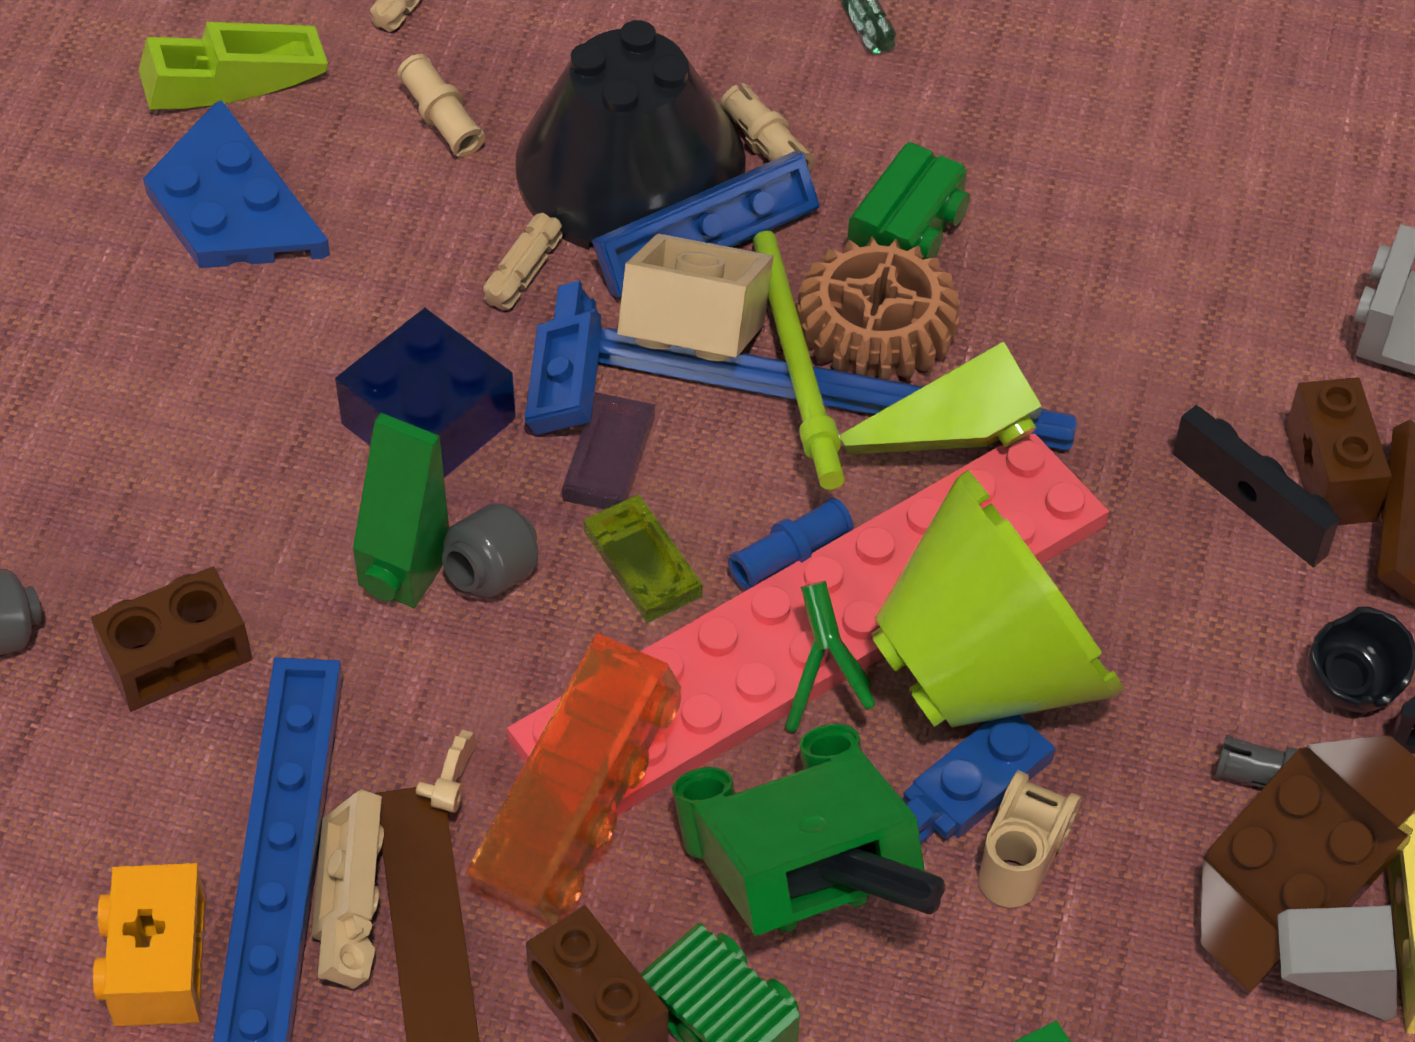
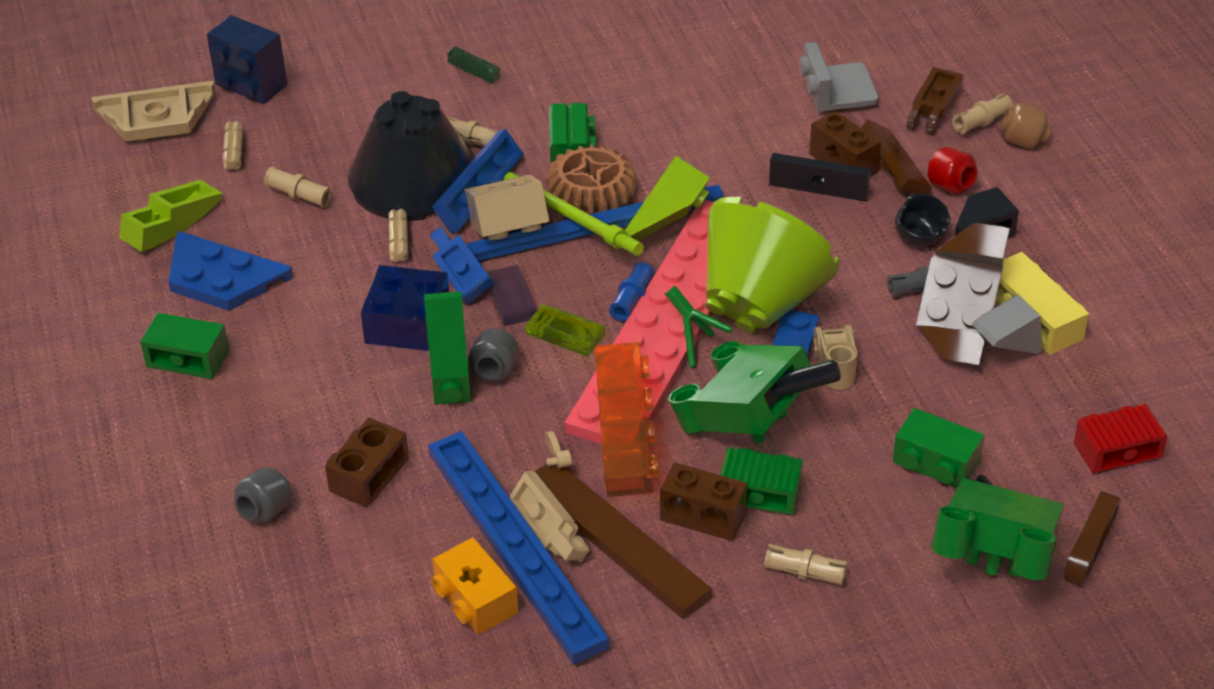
camera: 30 degrees left, 10 degrees down
(80, 300) = (184, 345): none -> green brick

